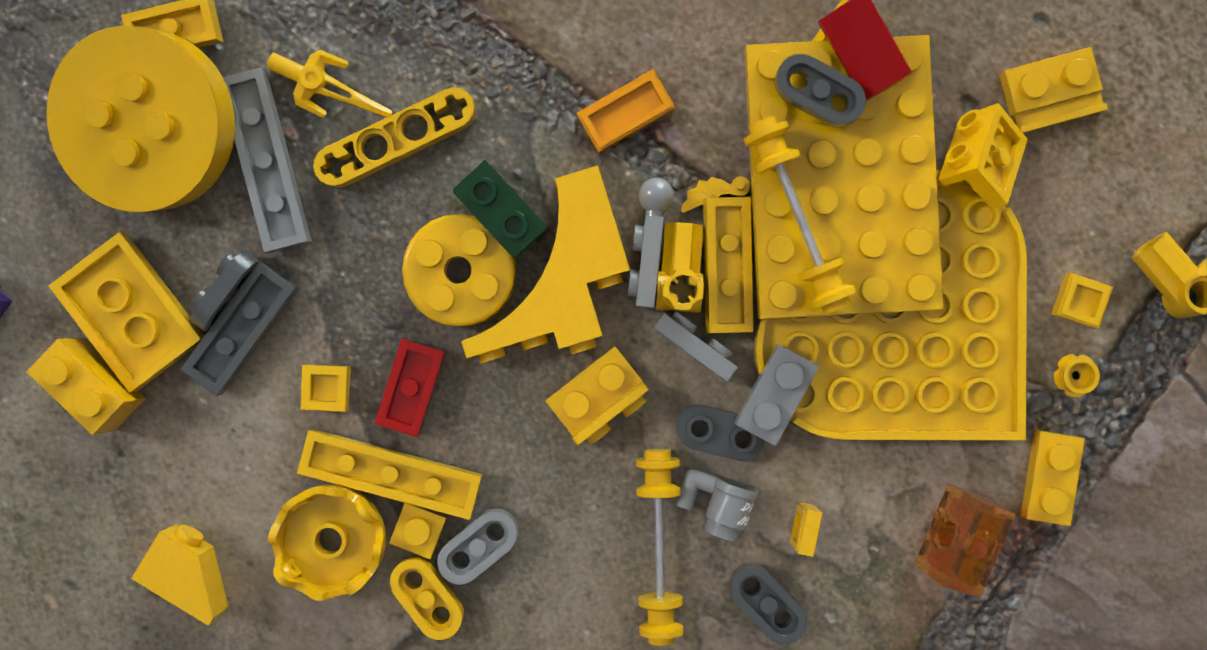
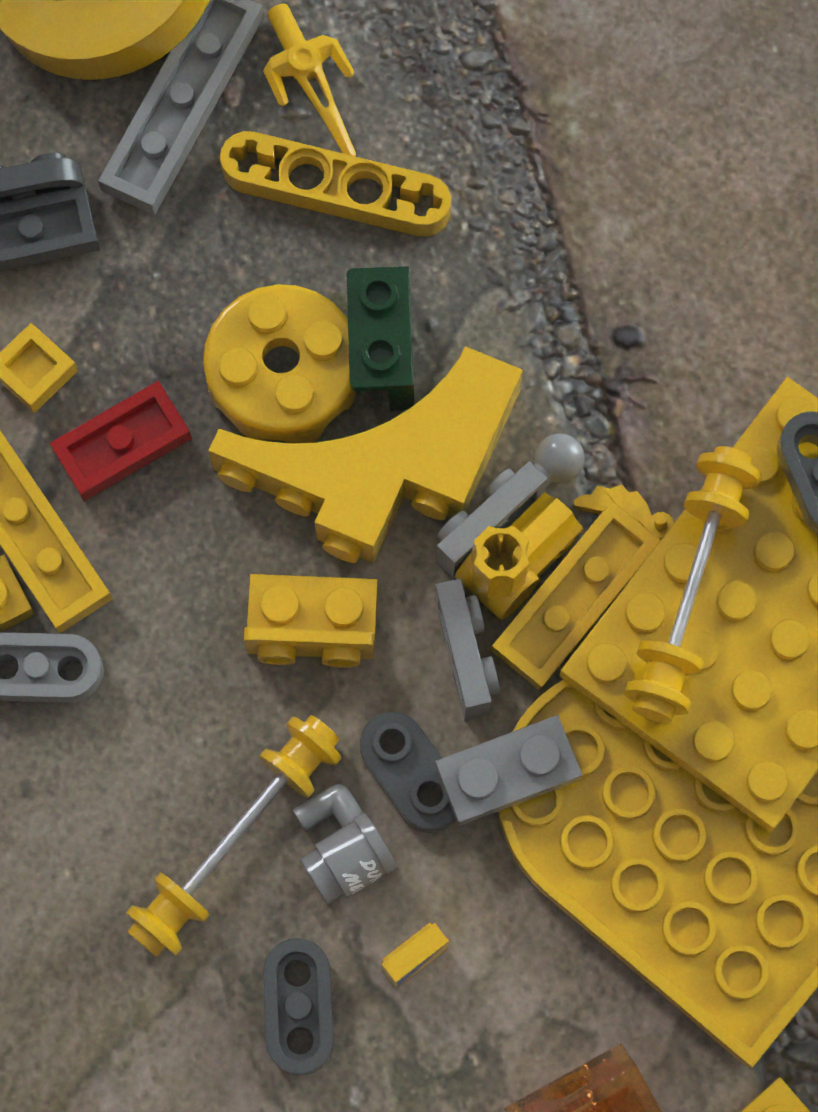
camera: 45 degrees right, 15 degrees down
(625, 111) = (602, 352): light orange tile -> none

